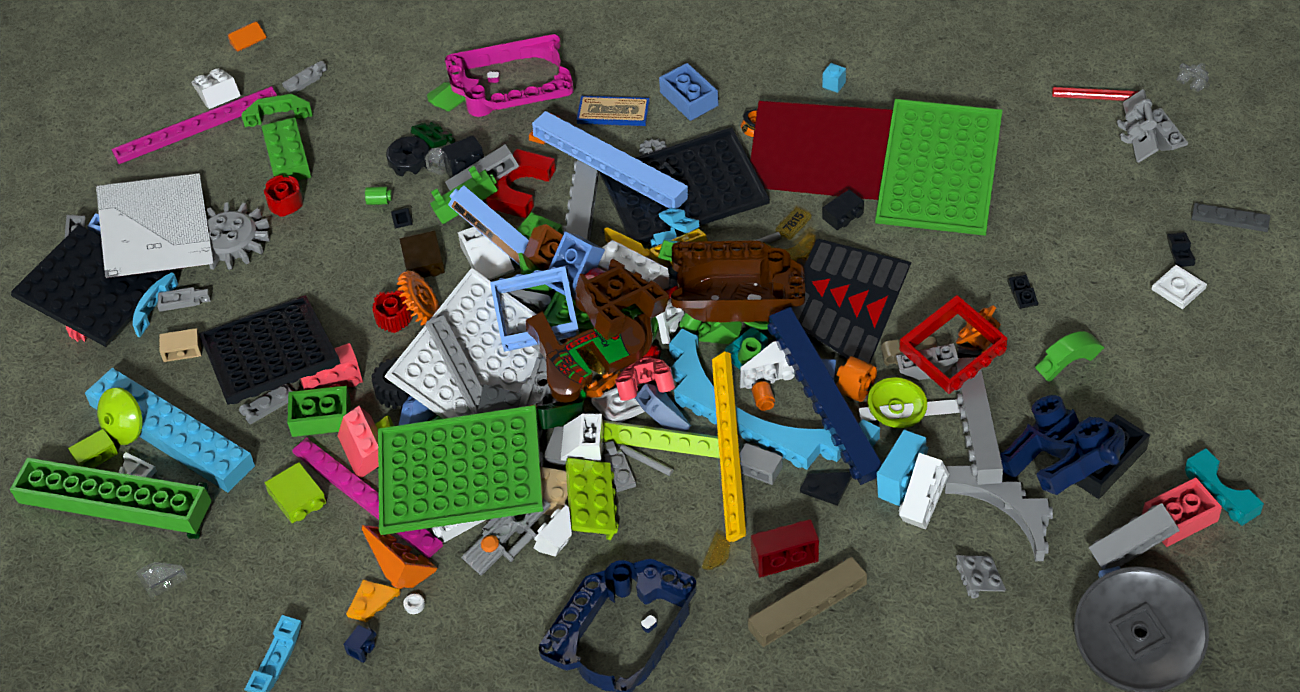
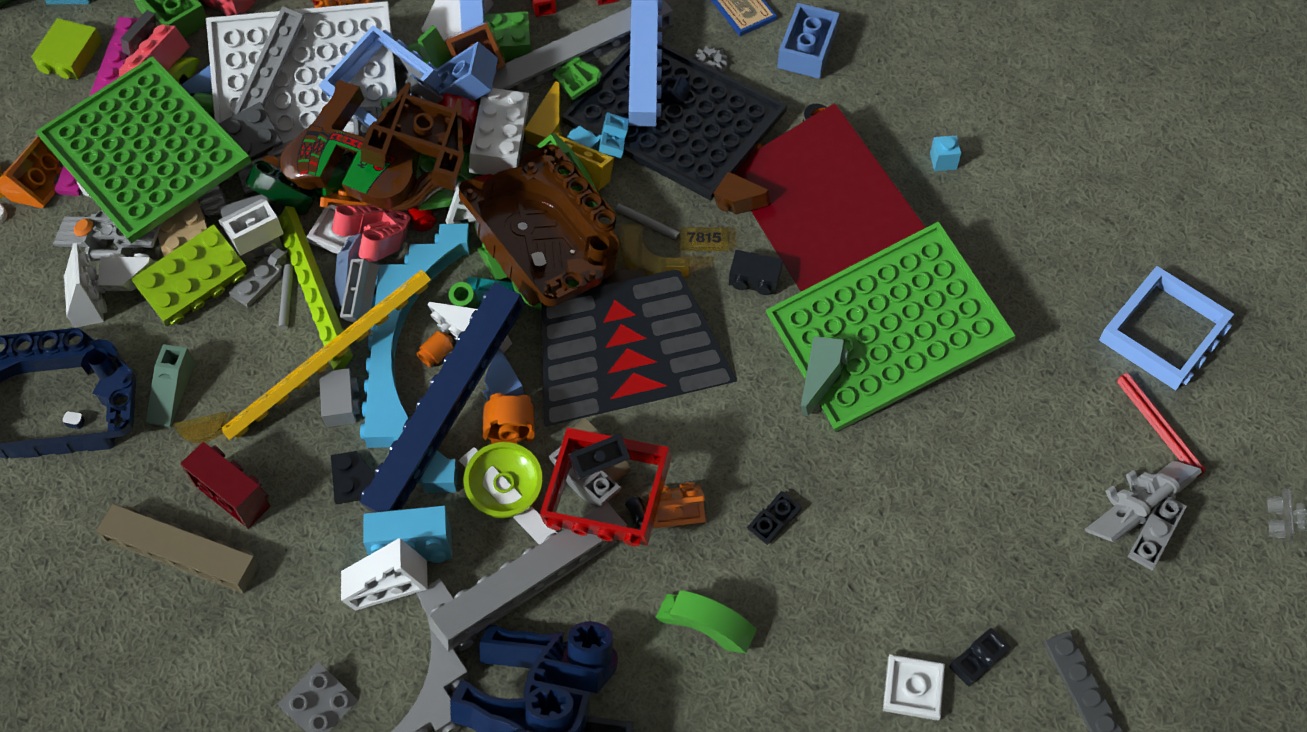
camera: 50 degrees right, 10 degrees up
(335, 439) = (139, 32): none -> dark grey plate
(548, 562) = (82, 291): none -> white slope
(572, 278) = (426, 91): none -> dark grey plate
(611, 216) = (577, 77): none -> bright green slope
(669, 550) = (169, 384): none -> sand green slope
(686, 411) = (359, 289): none -> light grey piece
(779, 185) = (740, 195): none -> reddish brown slope
(941, 326) = (599, 456): none -> black brick
(944, 208) = (823, 370): none -> sand green slope
(1040, 76) = (1145, 358): none -> light blue window

